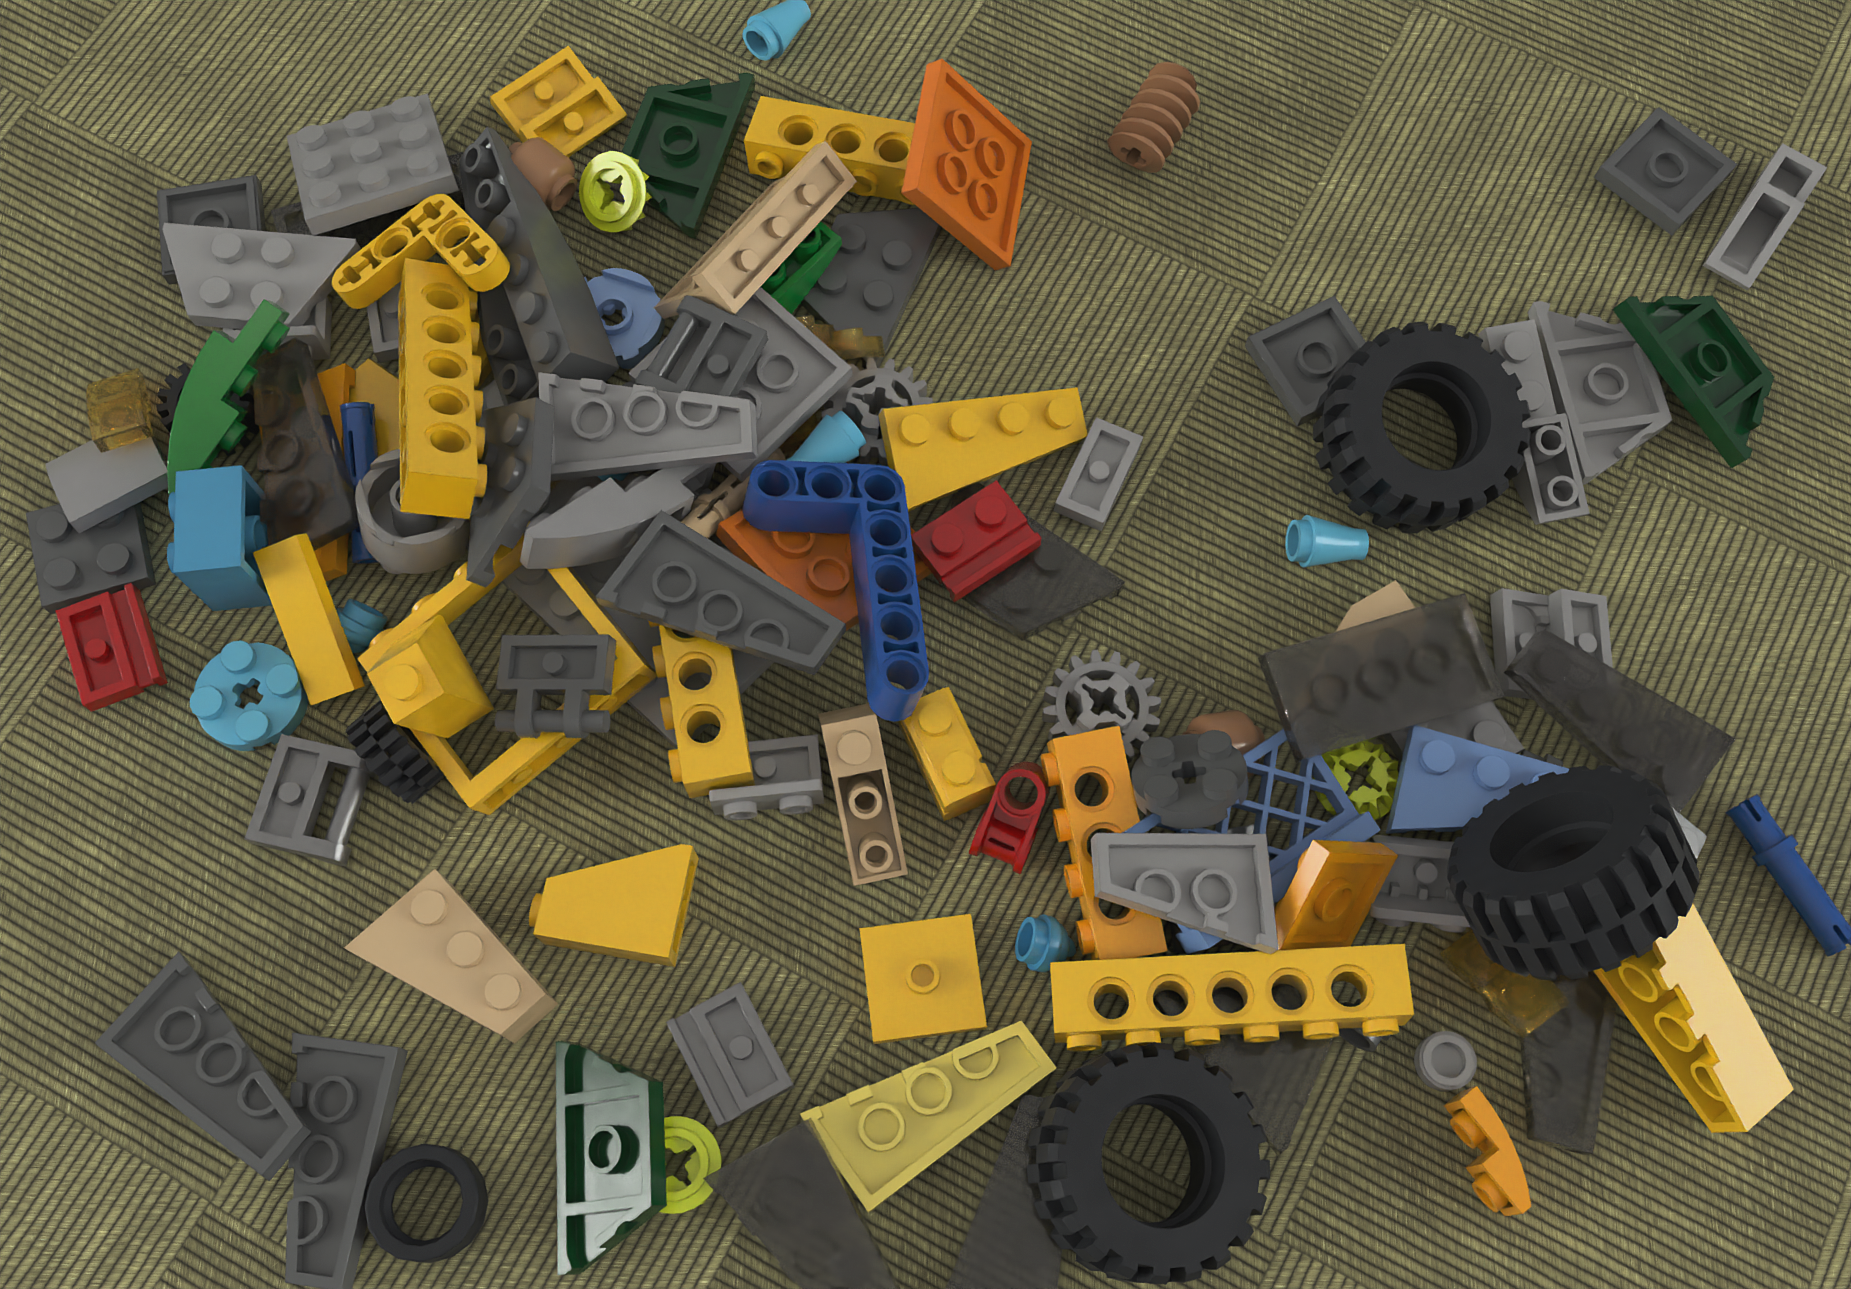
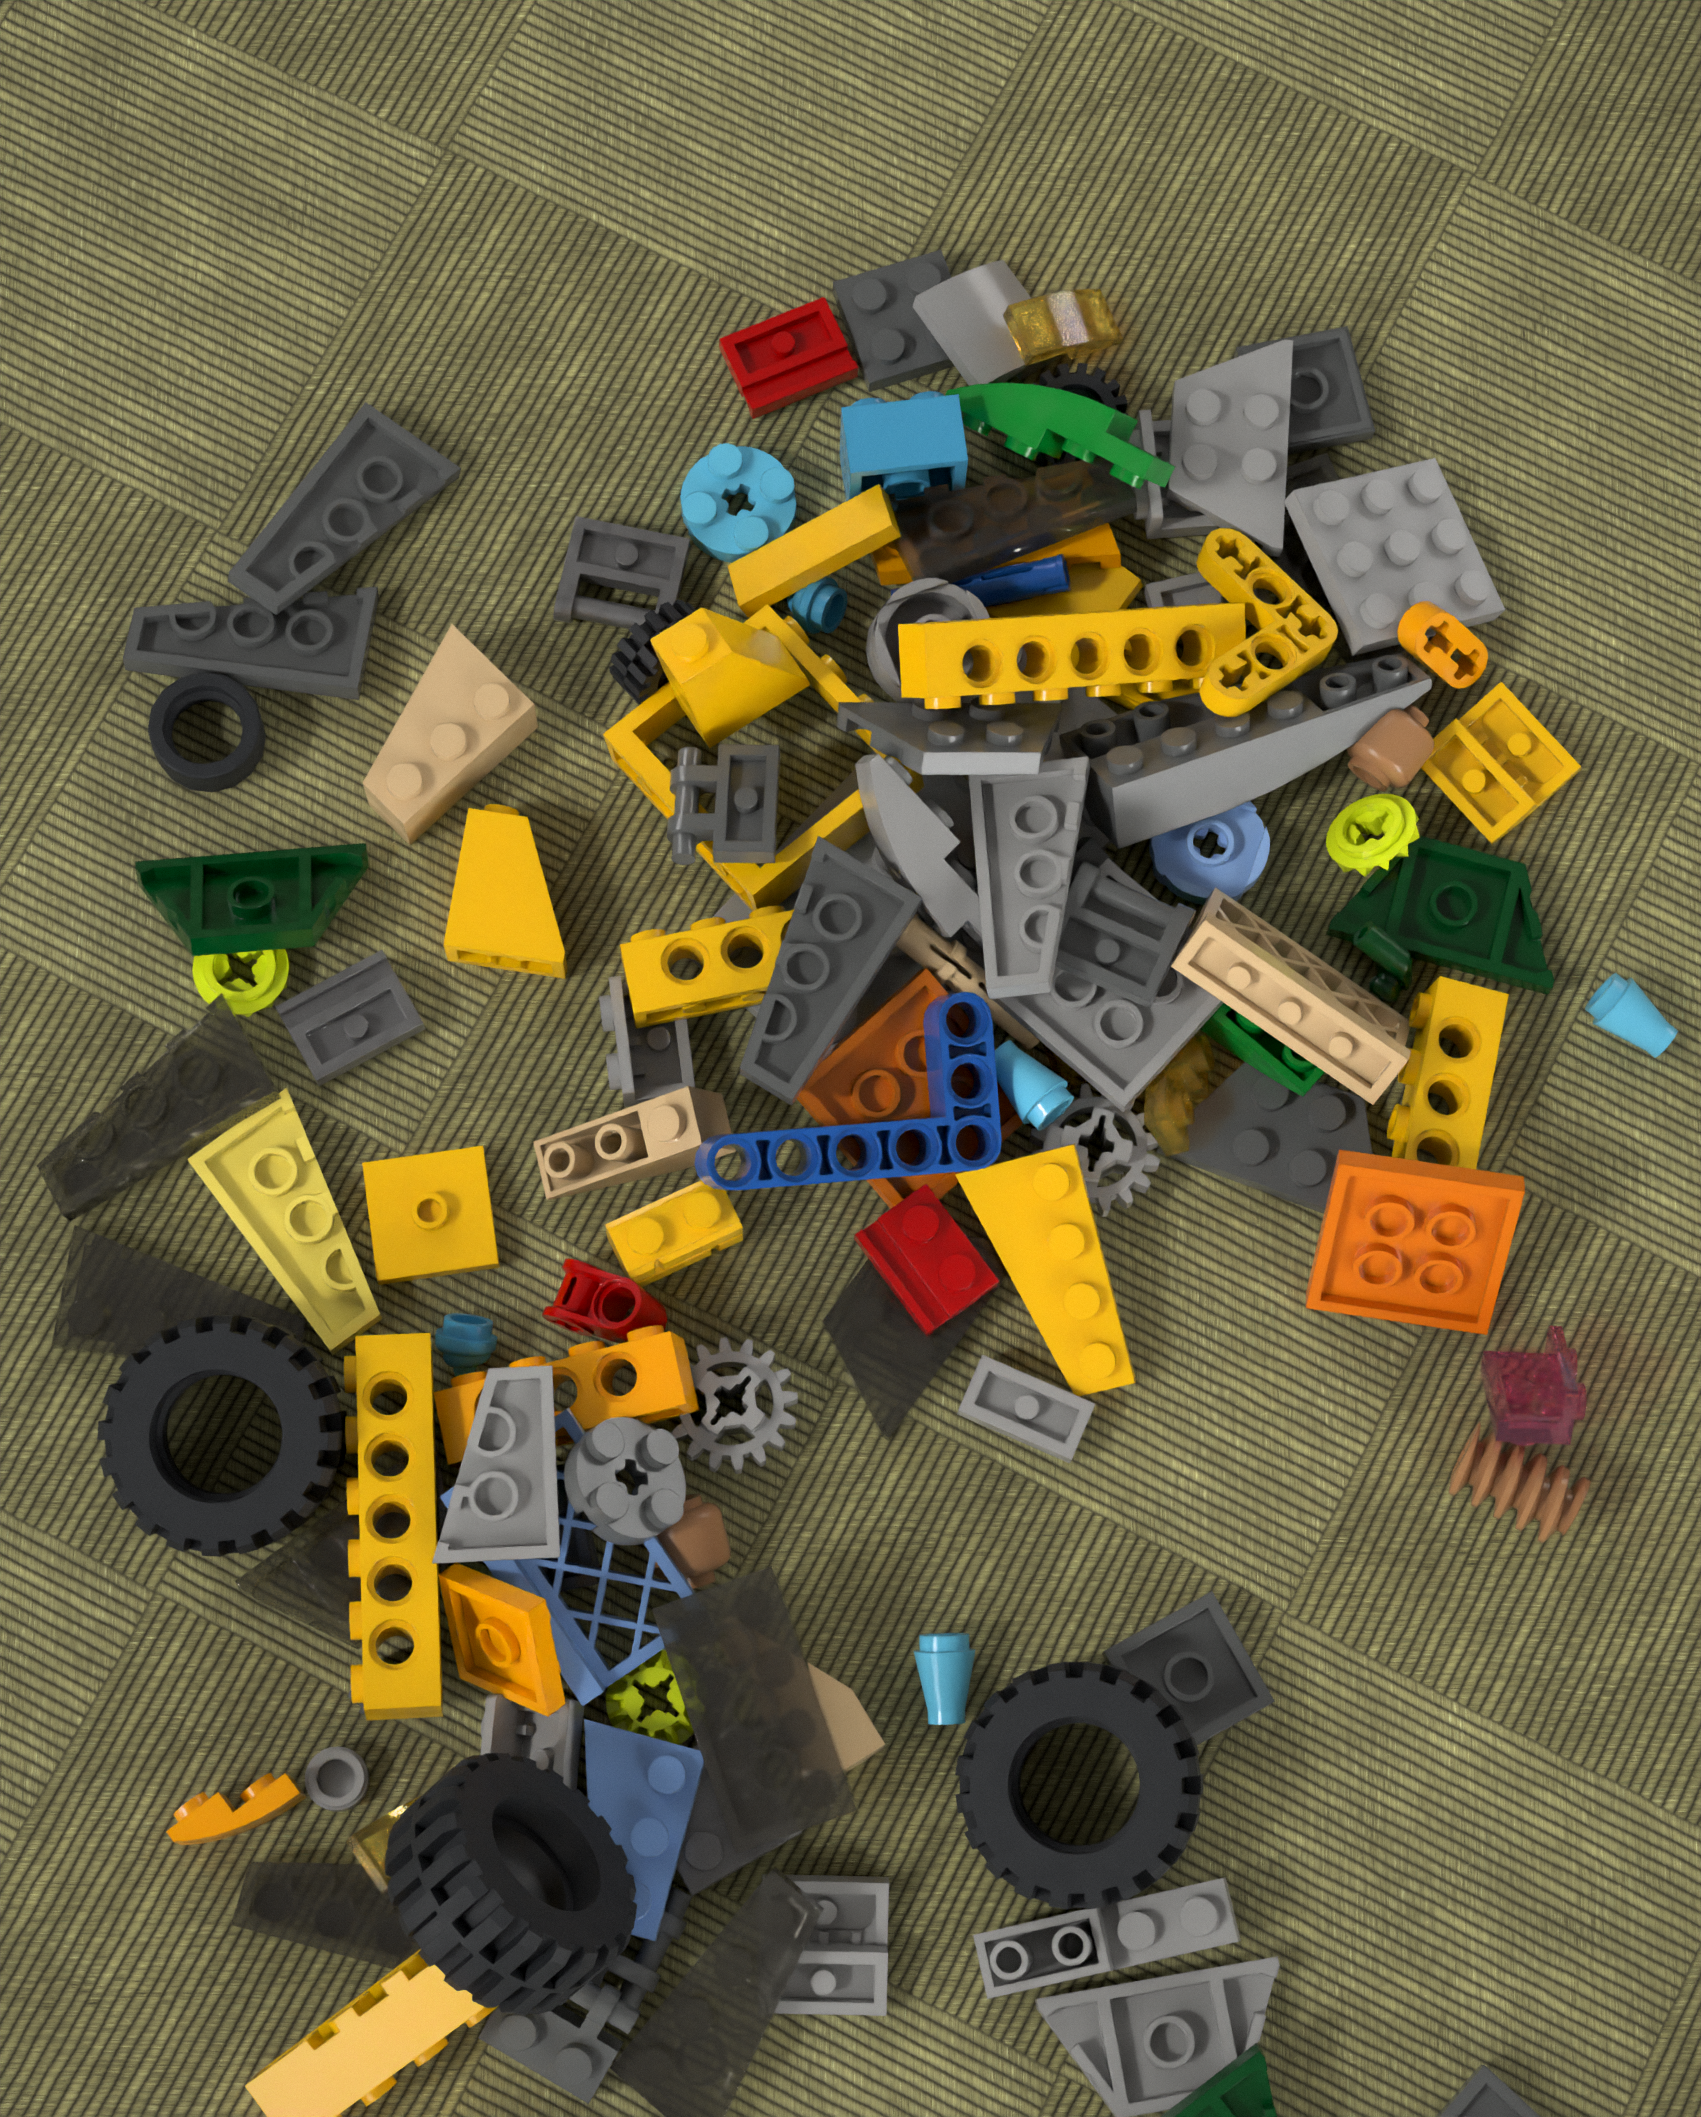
camera: 85 degrees right, 5 degrees up
(453, 127) = (1437, 652): none -> light orange beam
(726, 185) = (1391, 960): none -> dark green arm
(1084, 95) = (1534, 1394): none -> clear pink bracket

